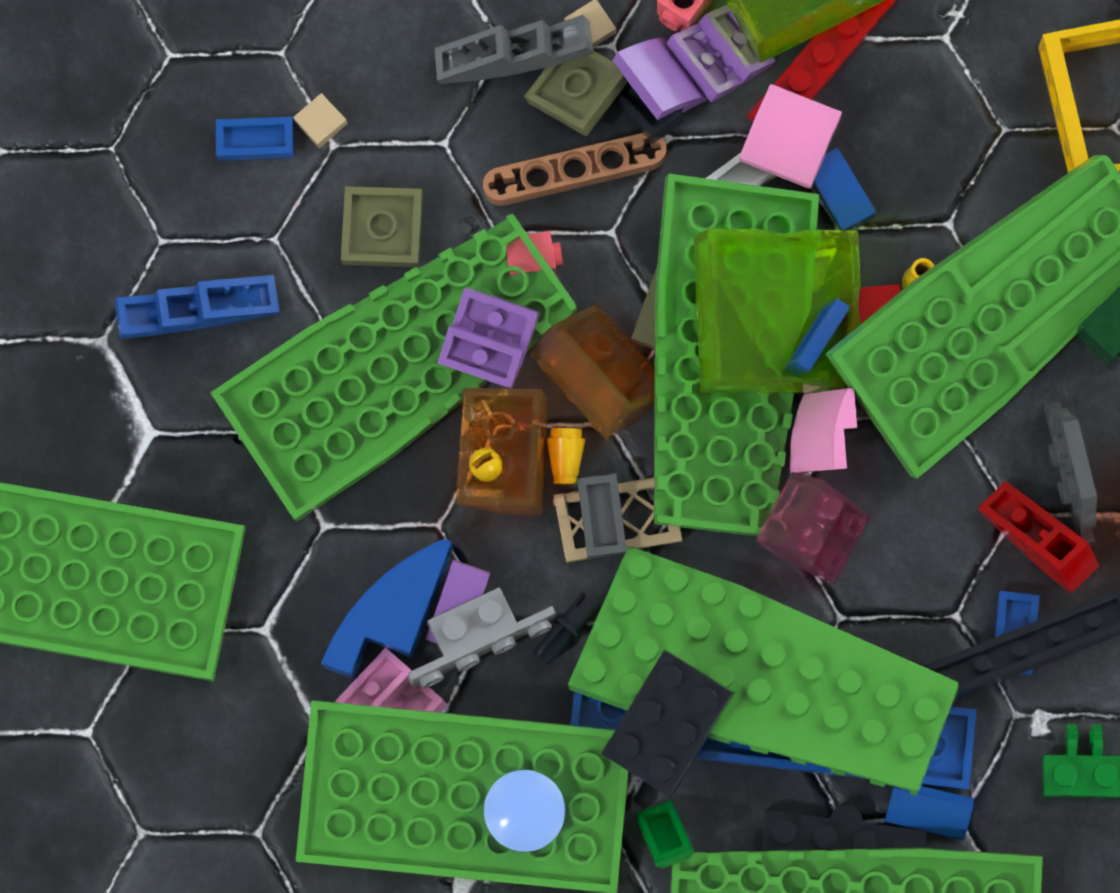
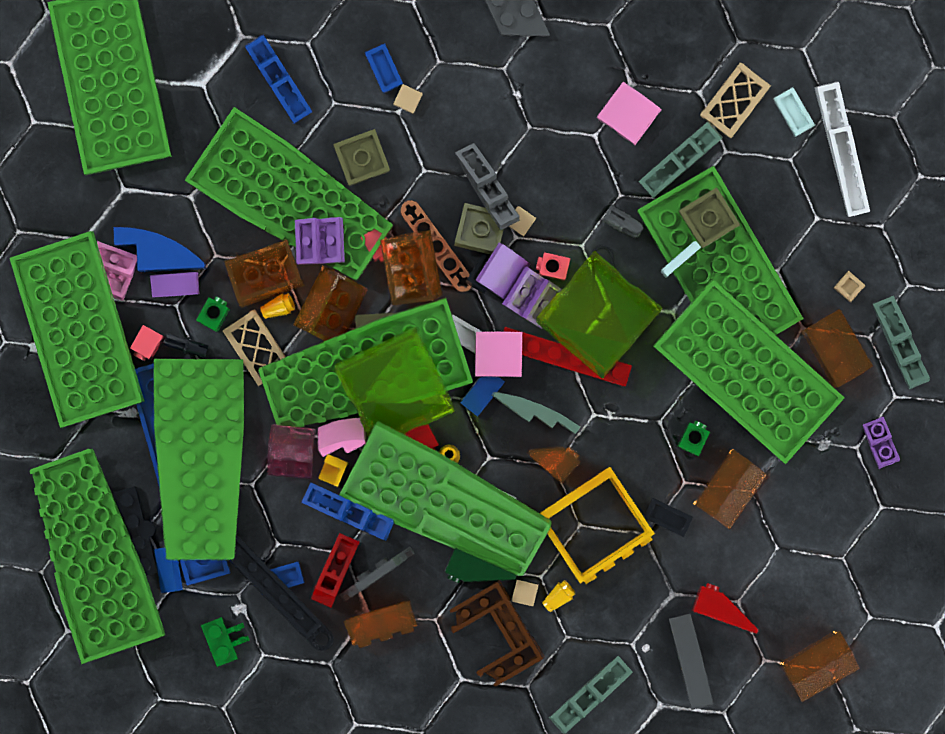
camera: 60 degrees right, 10 degrees up
(475, 630) = (164, 298): light grey bracket -> none
(490, 469) = (246, 272): yellow hinge -> none
(524, 810) = (80, 363): light blue dish -> none
(536, 579) = (204, 318): none -> green brick
(536, 691) = (146, 343): none -> coral brick
(594, 215) = (411, 268): none -> clear orange slope
(601, 515) = (252, 339): dark grey tile -> none
(664, 834) = (98, 439): green tile -> none
(668, 723) = (151, 418): black plate -> none
(817, 337) = (390, 413): blue tile -> none
(872, 473) = (333, 470): none -> yellow panel
(901, 122) = (527, 409): none -> sand green slope
(948, 477) = (347, 511): none -> blue slope
(1007, 107) = (556, 461): none -> clear orange slope

